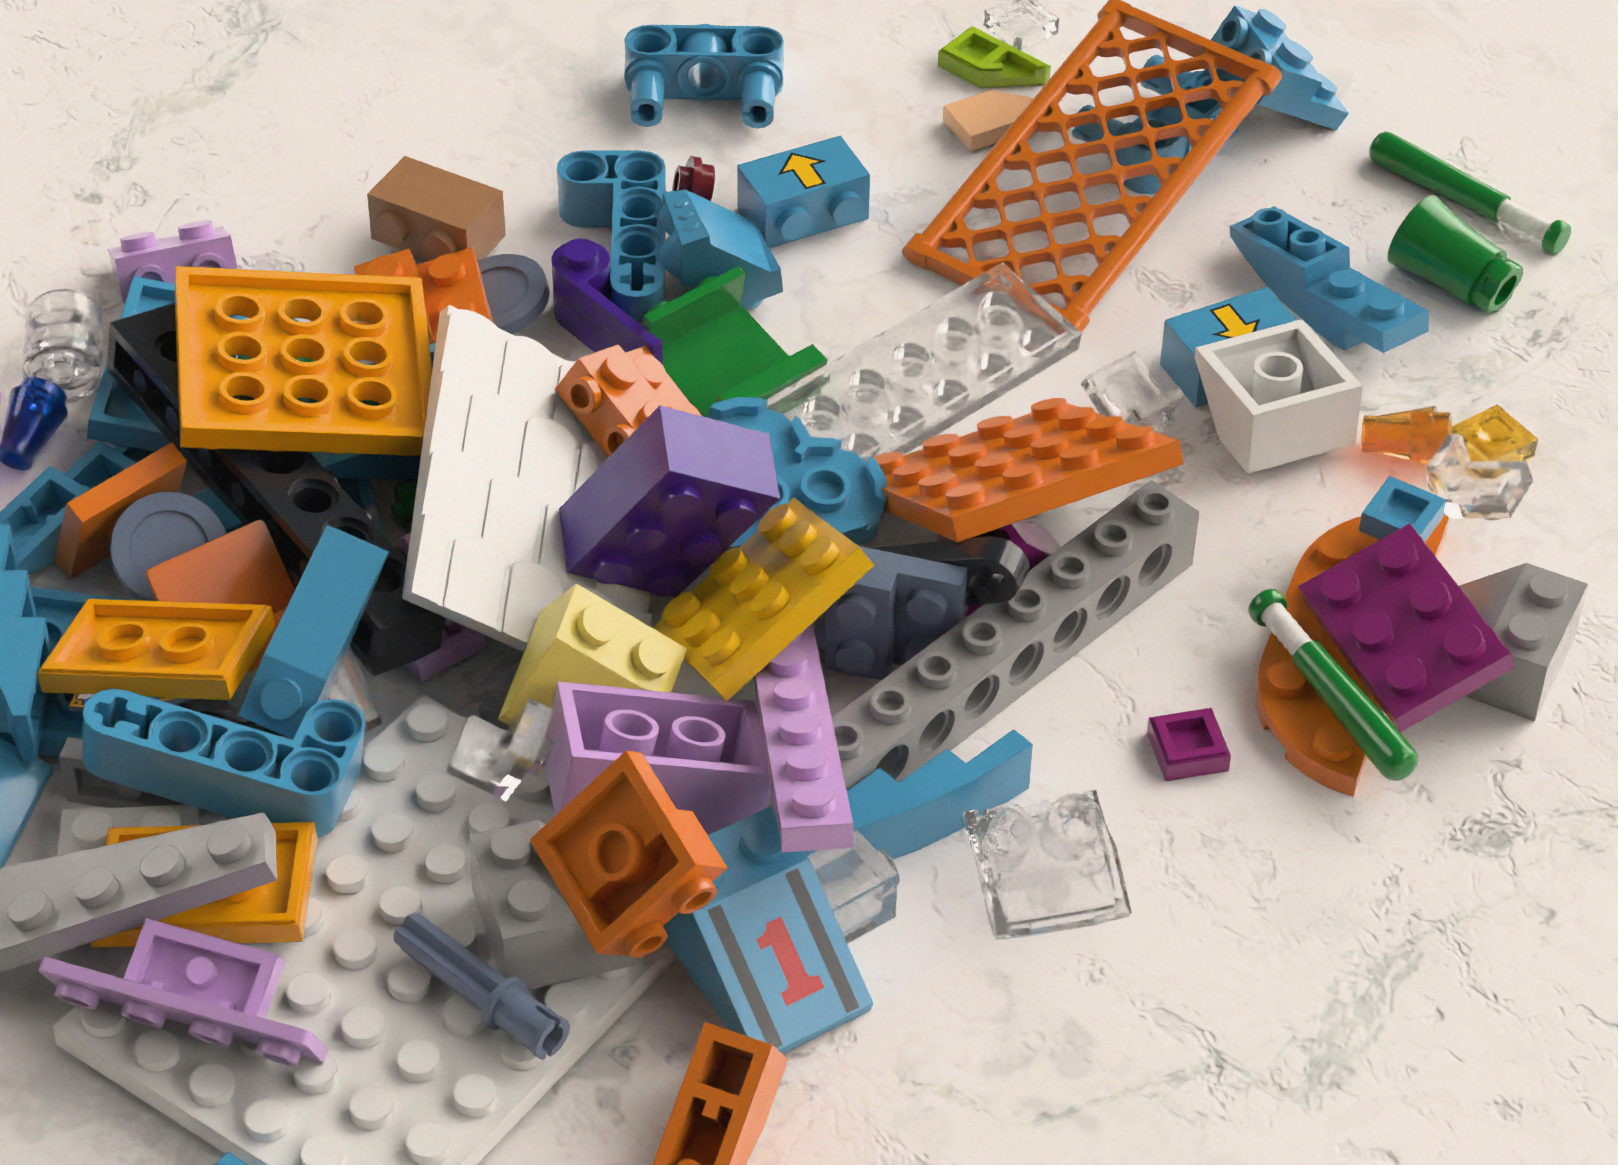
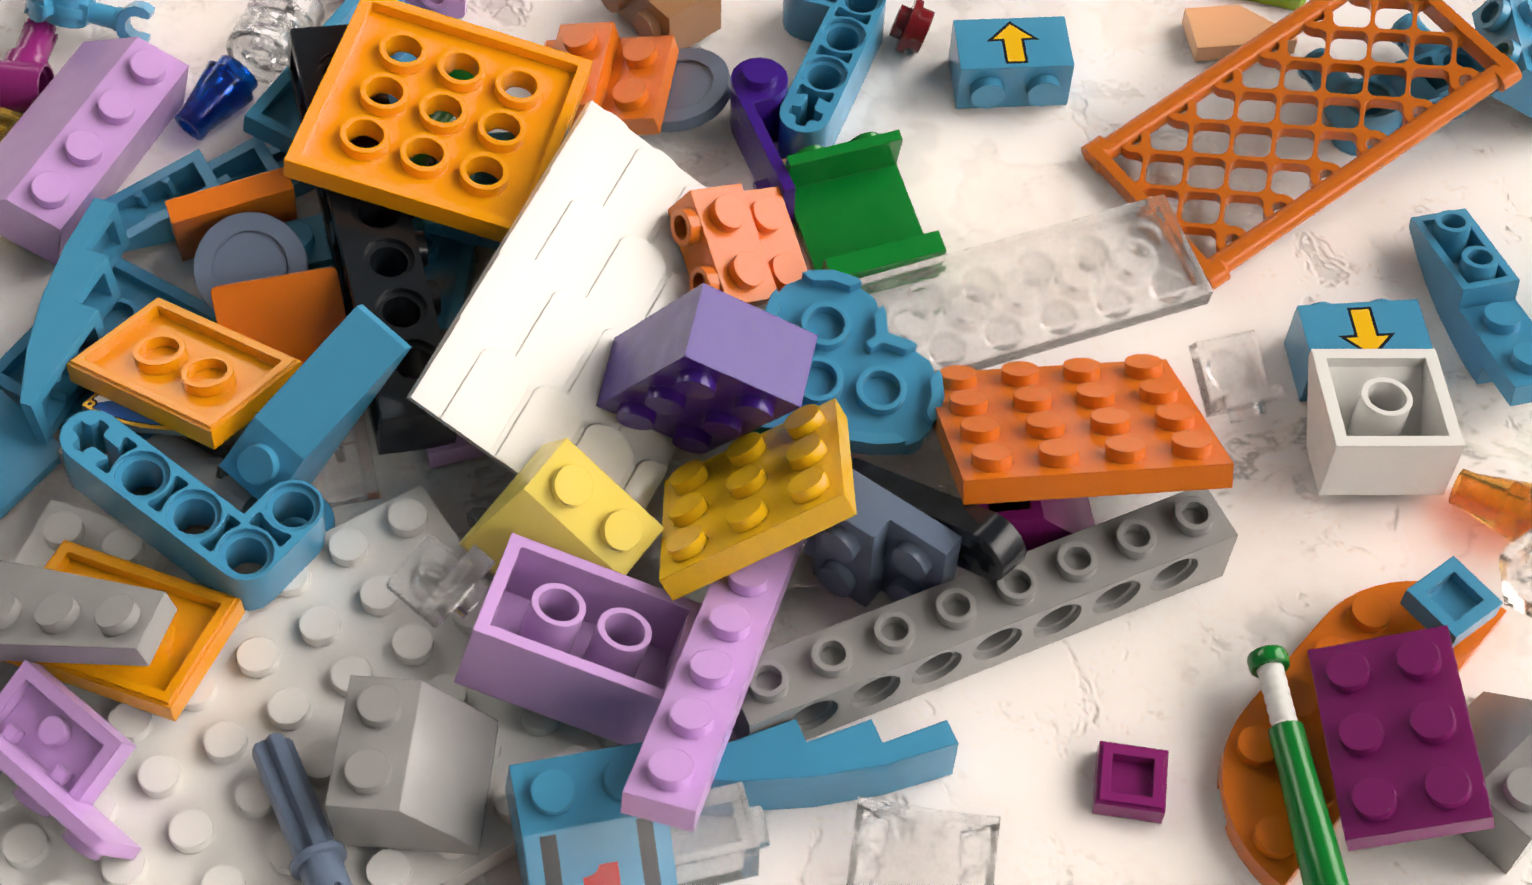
camera: 20 degrees right, 10 degrees up
(628, 859) = (471, 766): orange plate -> none
(713, 240) = (899, 93): dark azure slope -> none

